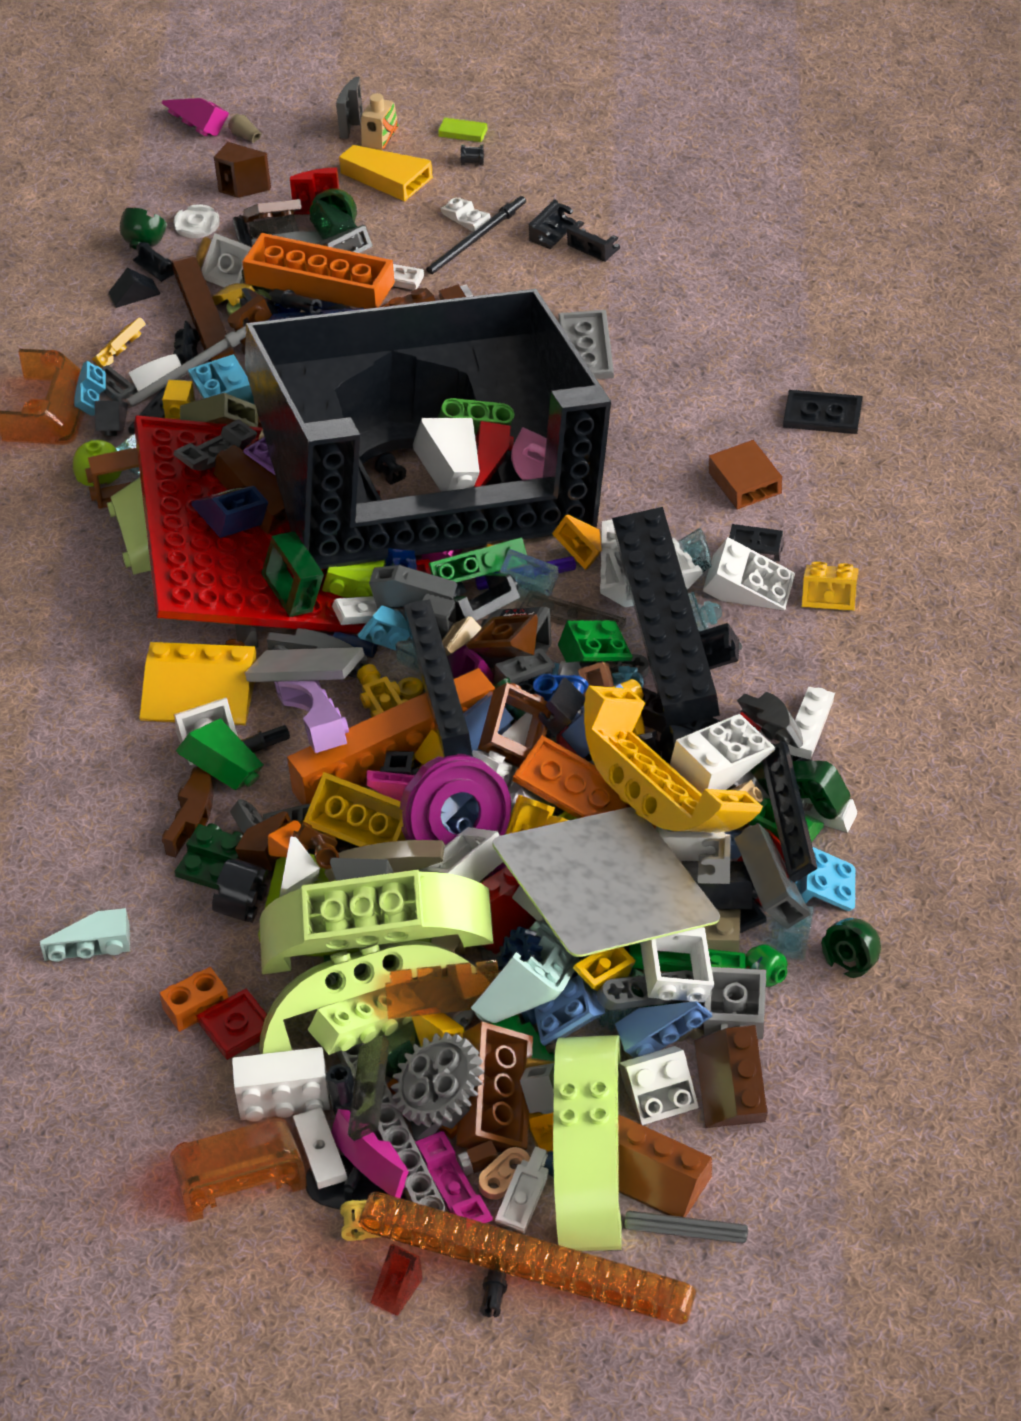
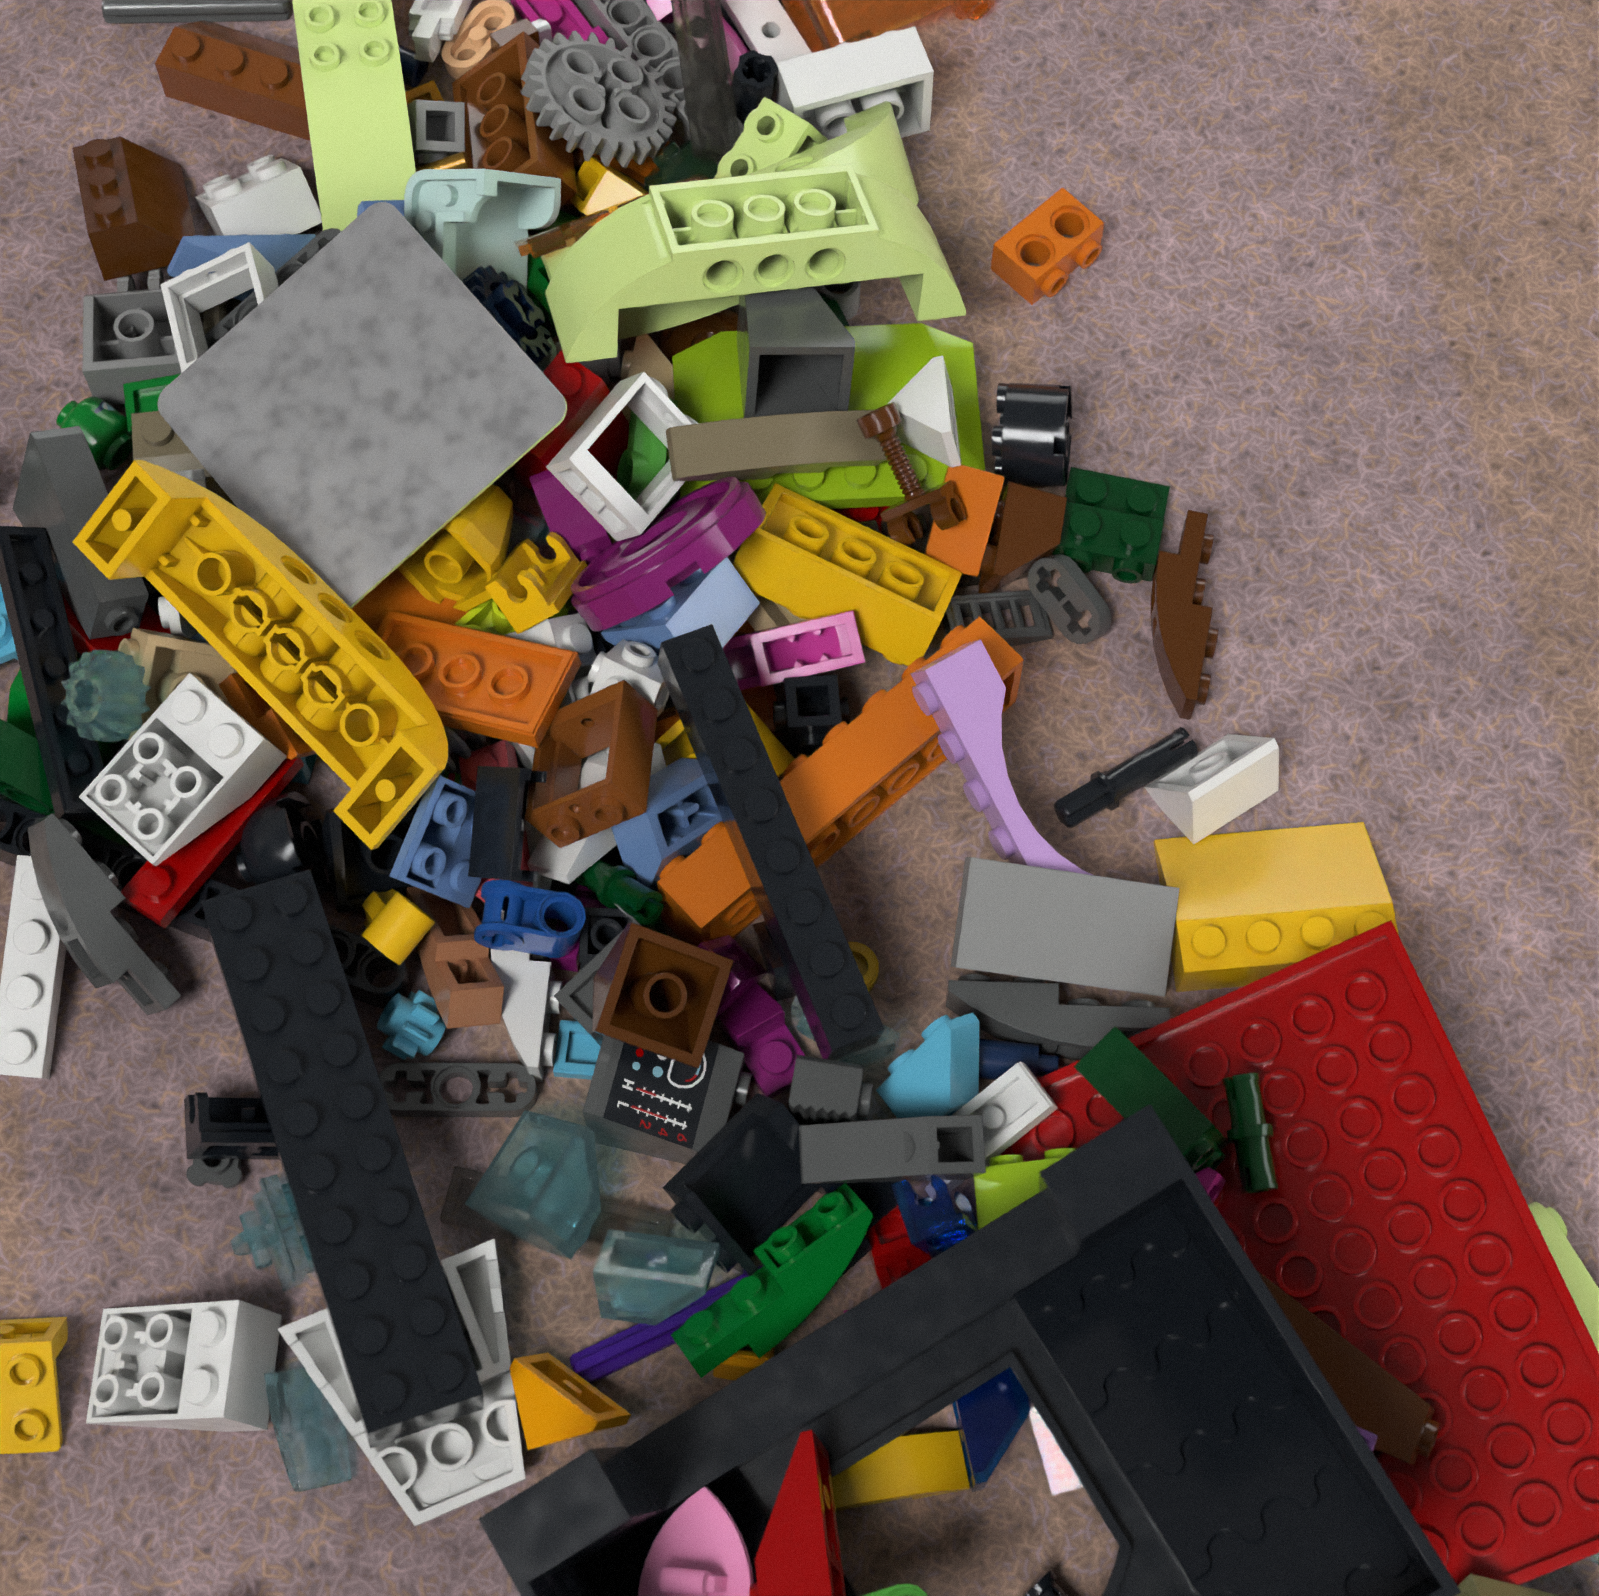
camera: 165 degrees right, 20 degrees up
(94, 935) = (1252, 338): light aqua slope -> none
(204, 455) = (1465, 1445): dark grey slope -> none
(221, 754) = (1164, 692): green slope -> none
(232, 510) = (1352, 1268): dark blue slope -> none
(233, 1023) = (968, 219): red plate -> none
(252, 564) = (1250, 1133): none -> dark green pin
(378, 690) = (892, 899): yellow brick -> none
(448, 451) = (881, 1487): white slope -> none
(460, 634) = (751, 1050): tan slope -> none
(577, 601) = (543, 1184): none -> clear light blue slope
(593, 642) = (476, 1049): green slope -> none
(757, 778) = (105, 695): none -> clear light blue gear
(759, 539) = (171, 1471): black hinge -> none

